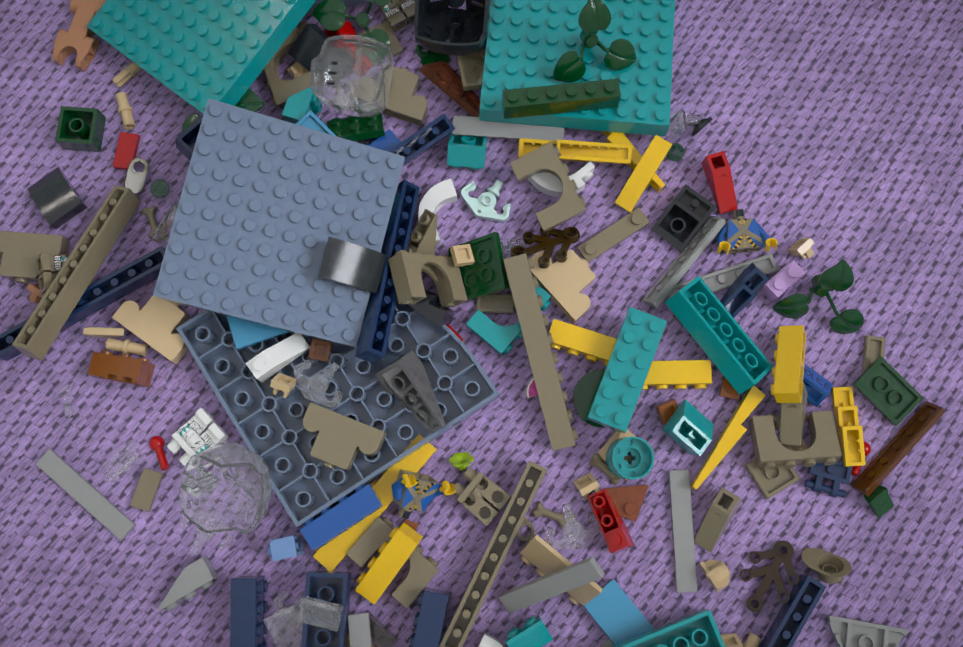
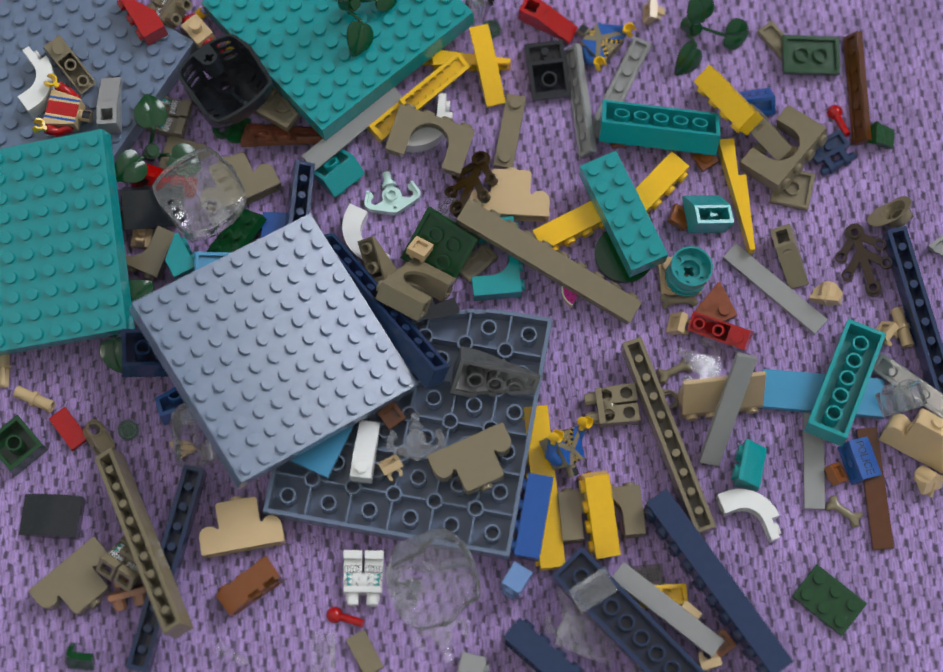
camera: 50 degrees left, 5 degrees down
(101, 332) = (207, 573): tan tile -> none
(126, 347) = (234, 568): tan pin -> none
(150, 213) = (158, 464): dark tan piece -> none
(352, 265) = (357, 325): black slope -> none
(461, 460) = (573, 396): lime plant -> none
(561, 98) = (376, 65): dark green brick -> none
(744, 289) = (642, 79): dark blue slope -> none
(782, 280) = (662, 48): lavender brick -> none
(847, 426) = (809, 105): yellow slope -> none

